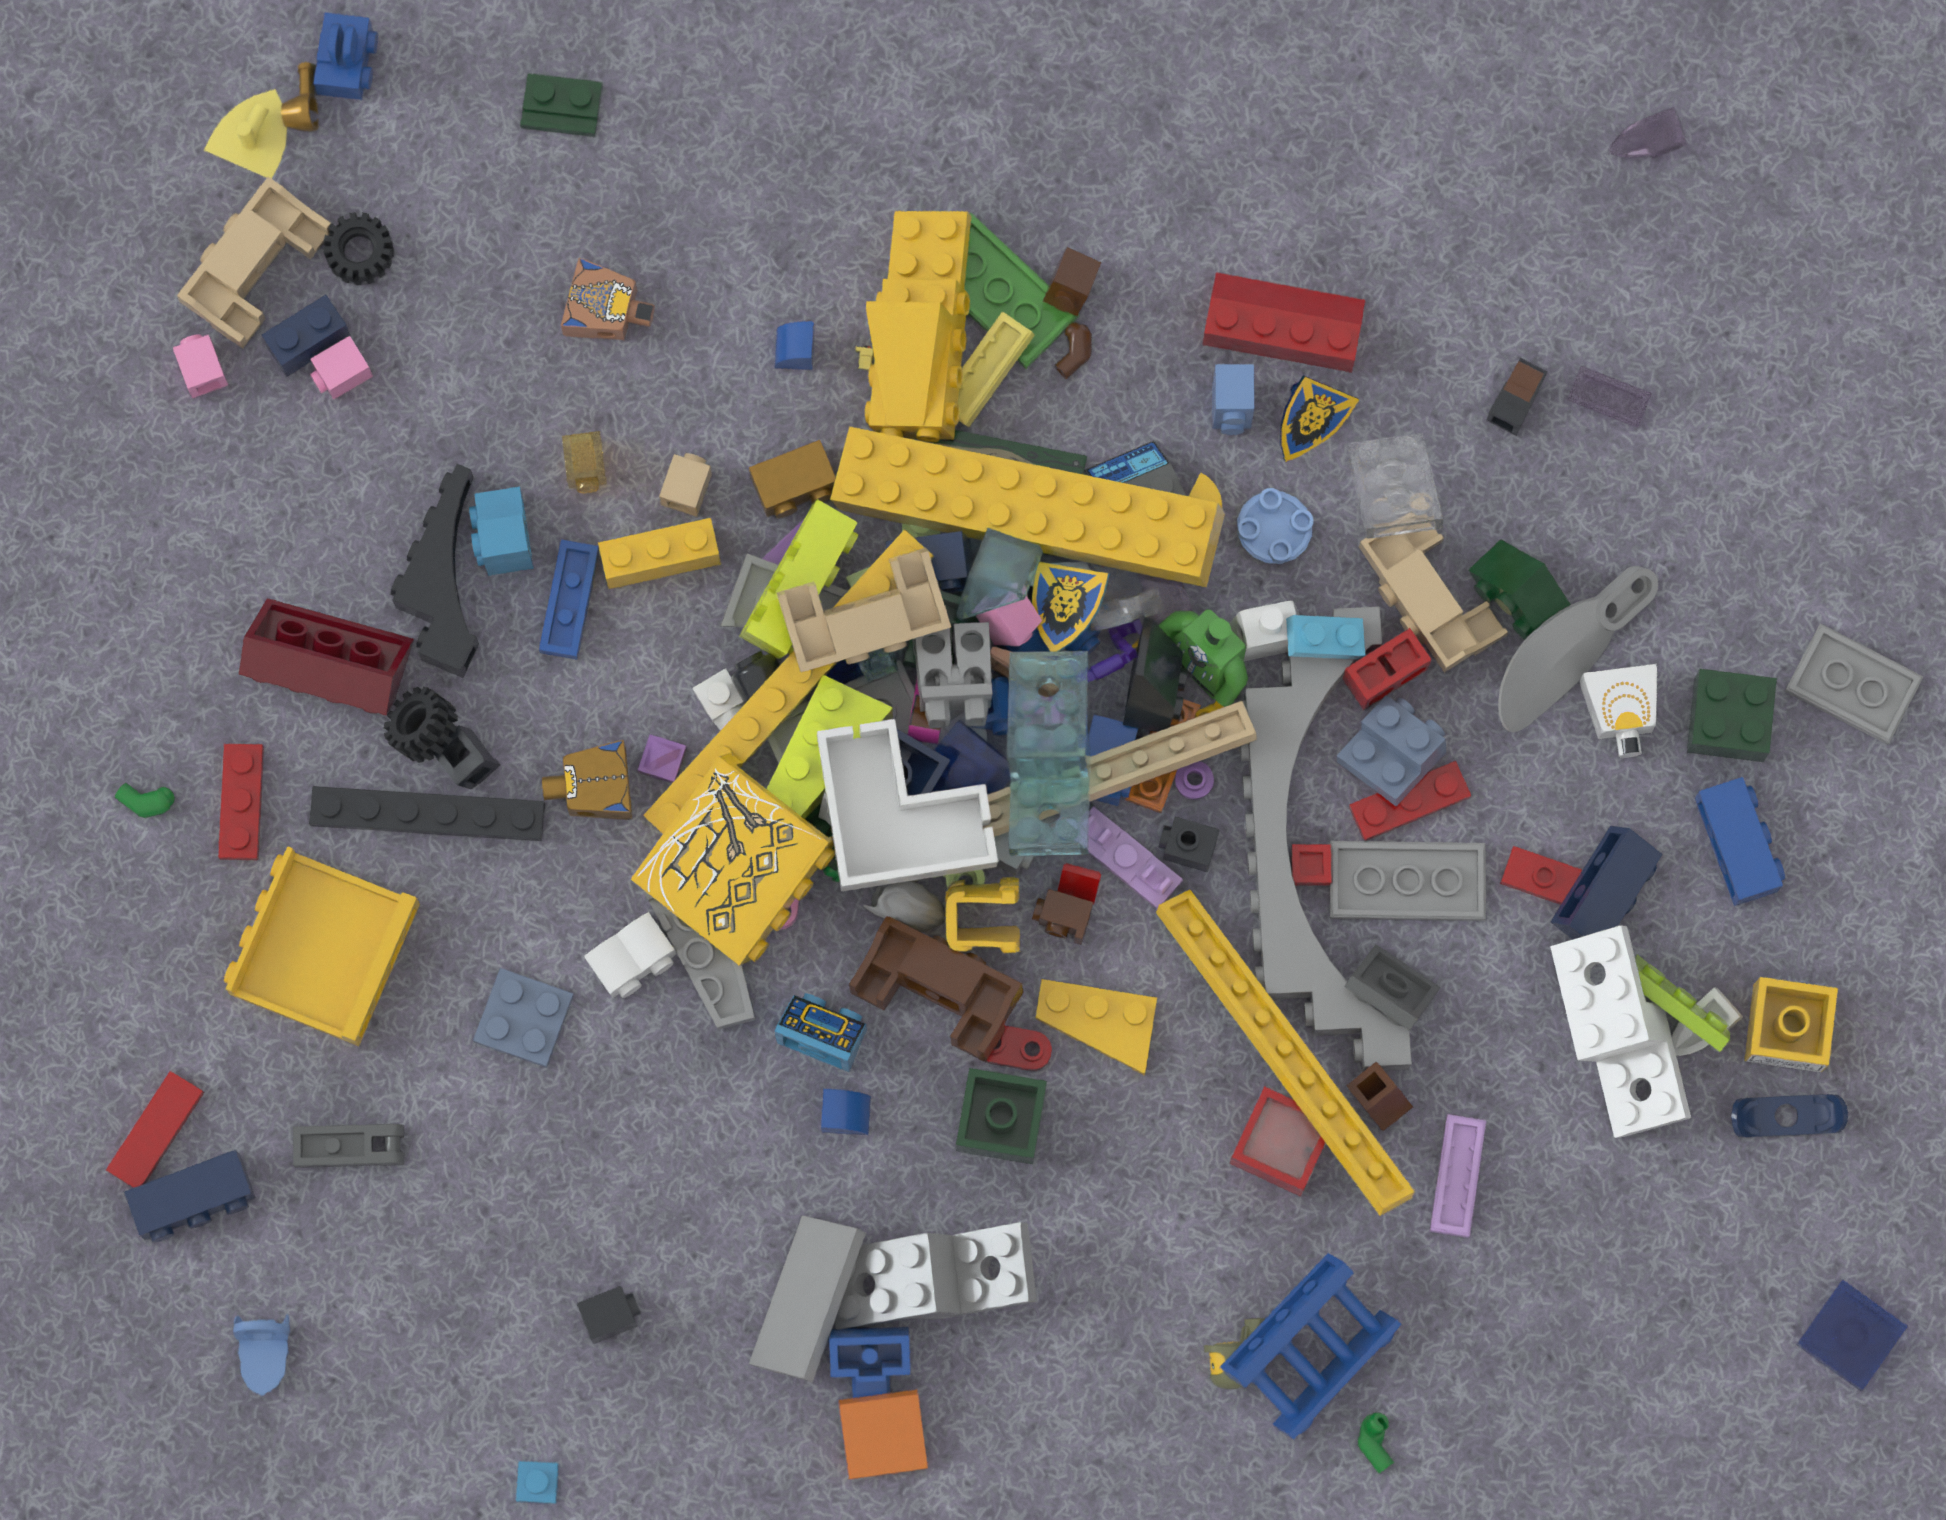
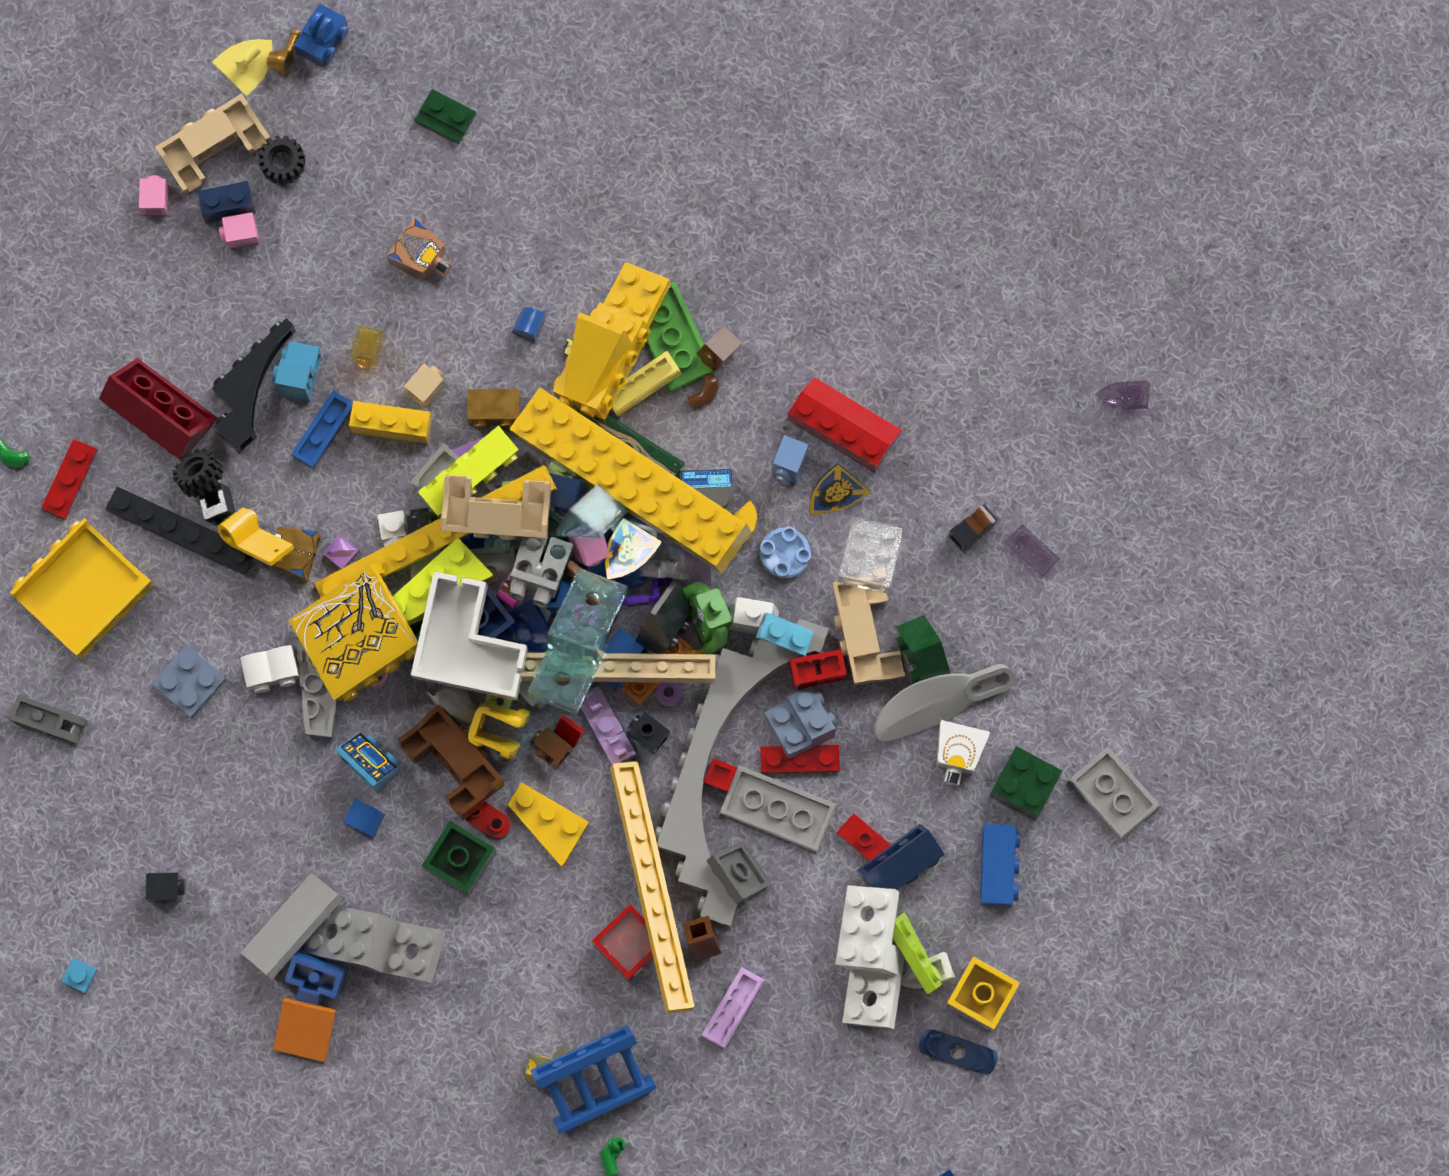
camera: 20 degrees right, 0 degrees up
(519, 784) = (244, 534): none -> yellow door

